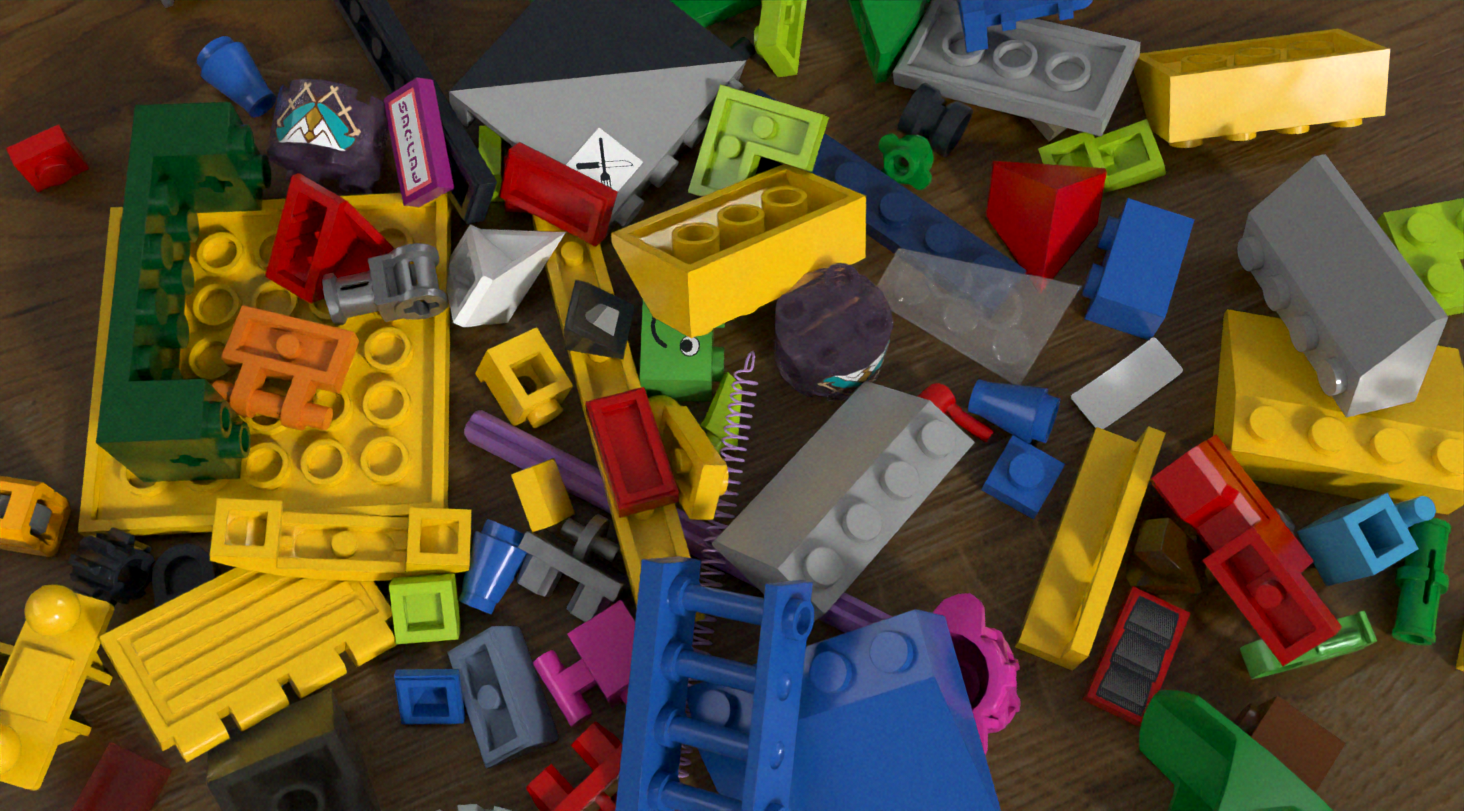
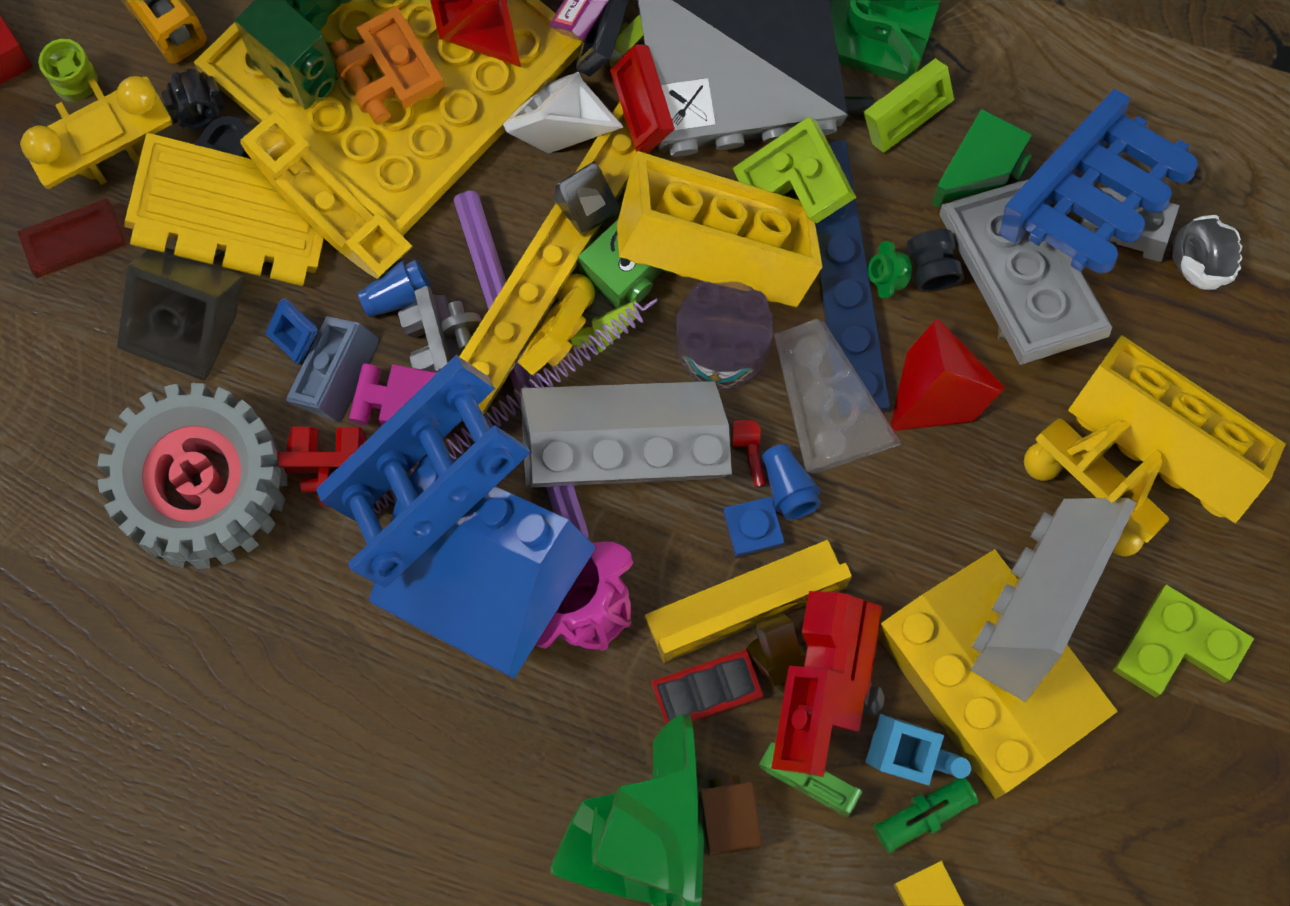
camera: 45 degrees right, 5 degrees up
(389, 287) = (492, 71): flat silver connector -> none
(425, 608) = (335, 279): lime plate -> none
(529, 363) = (529, 186): yellow brick -> none
(543, 494) = (458, 274): yellow tile -> none
(632, 452) = (527, 294): red tile -> none
(1126, 154) = (1028, 389): lime slope -> none
(1127, 384) = (880, 534): white sticker -> none
(1138, 268) = (959, 469): blue brick -> none
(1237, 160) = (1082, 456): none -> yellow piece

